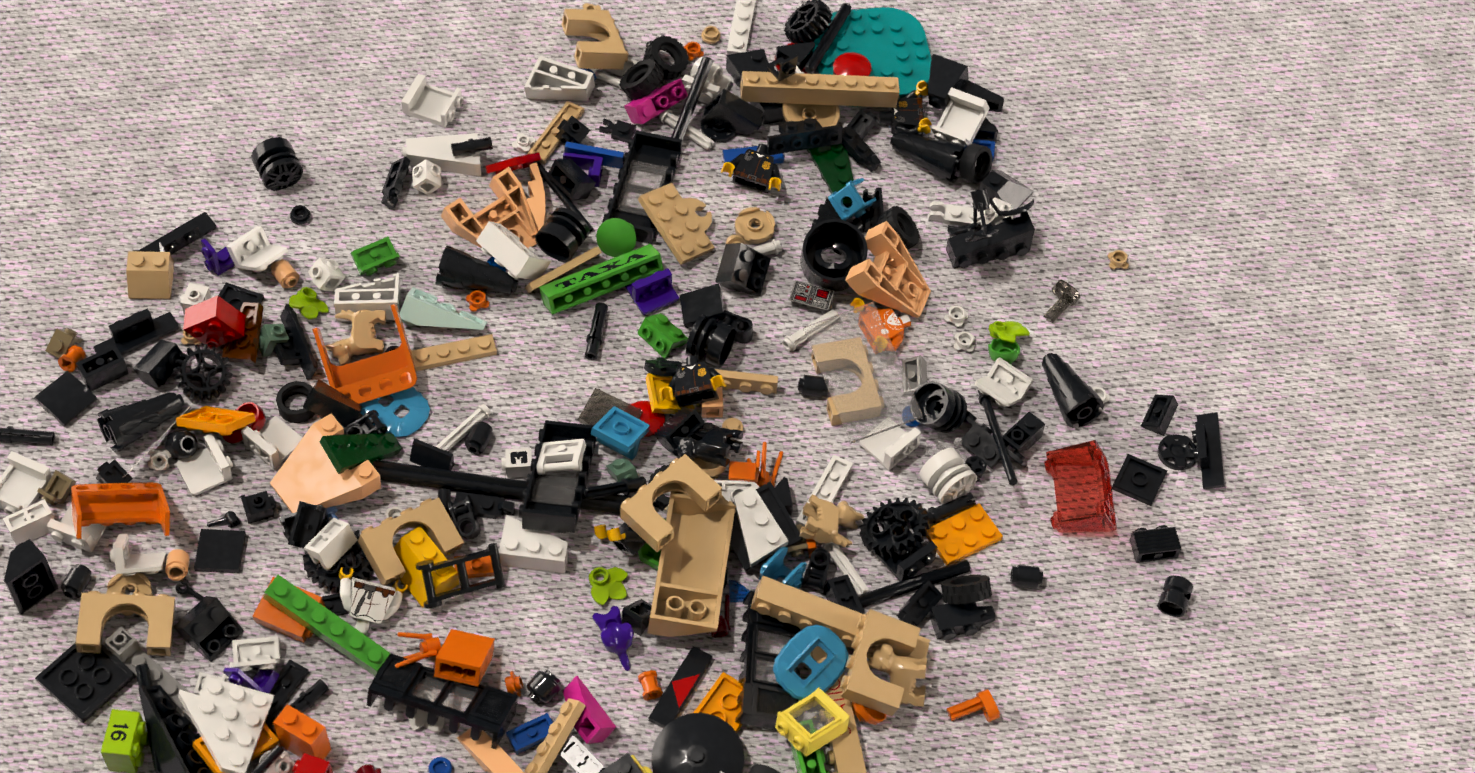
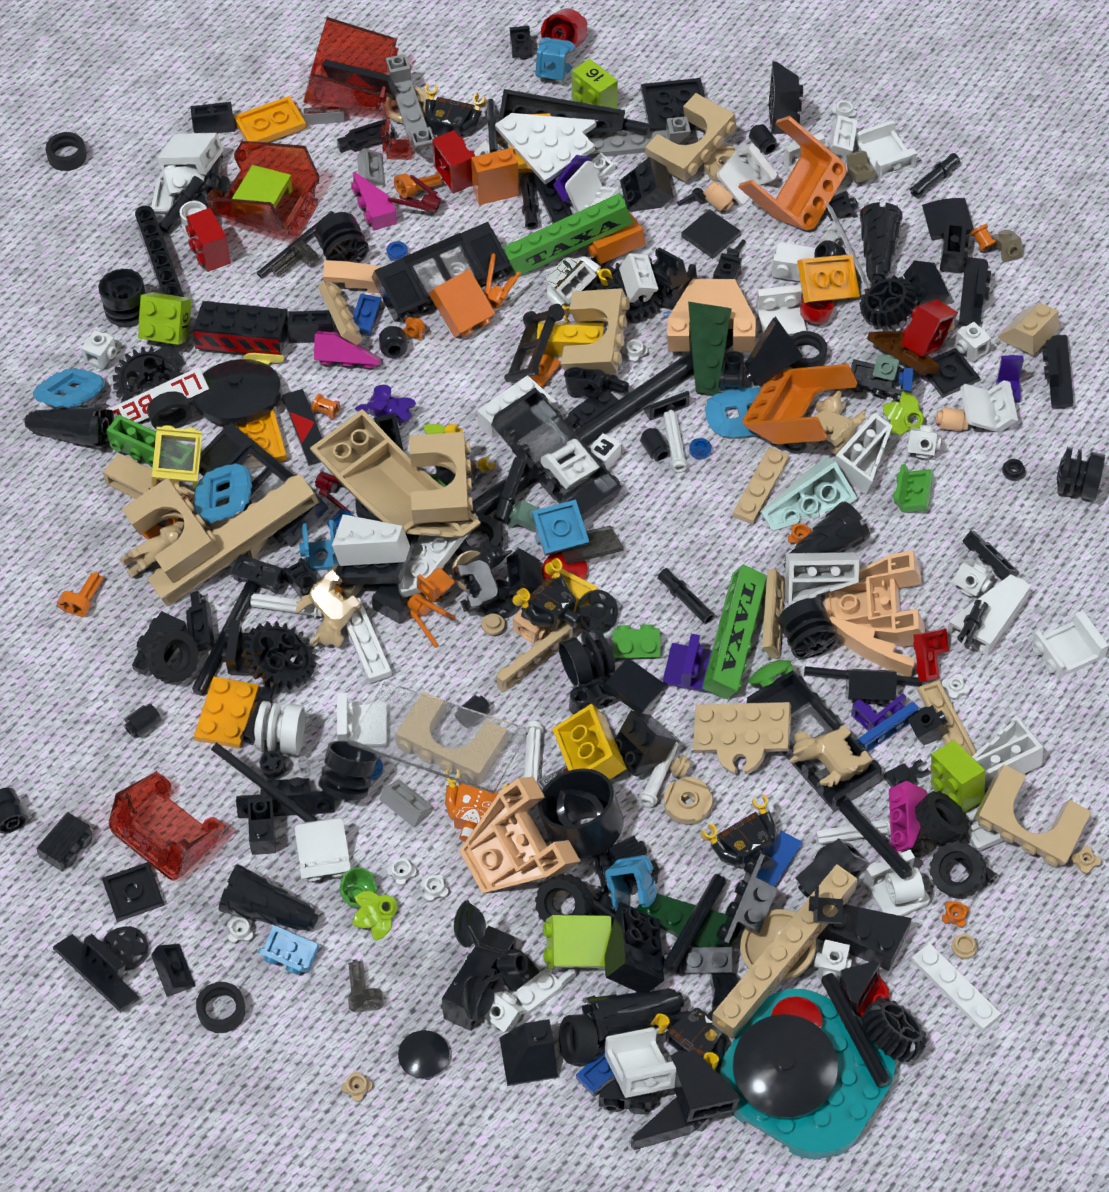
camera: 135 degrees right, 0 degrees up
(278, 308) = (906, 378): none -> blue plate
(453, 411) = (700, 448): none -> clear blue tile
(602, 89) = (957, 775): none -> lime brick
(648, 160) = (833, 753): none -> tan animal
(776, 294) = (589, 743): none -> yellow slope
(839, 159) = (694, 923): none -> black axle
(888, 51) = (785, 1066): none -> black dish
(893, 169) = (634, 950): none -> black slope
(920, 200) = (576, 941): none -> lime panel
(1062, 242) = (423, 1054): none -> black dish
(1083, 355) = (290, 950): none -> bracket
(1150, 376) = (220, 1025): none -> black tyre

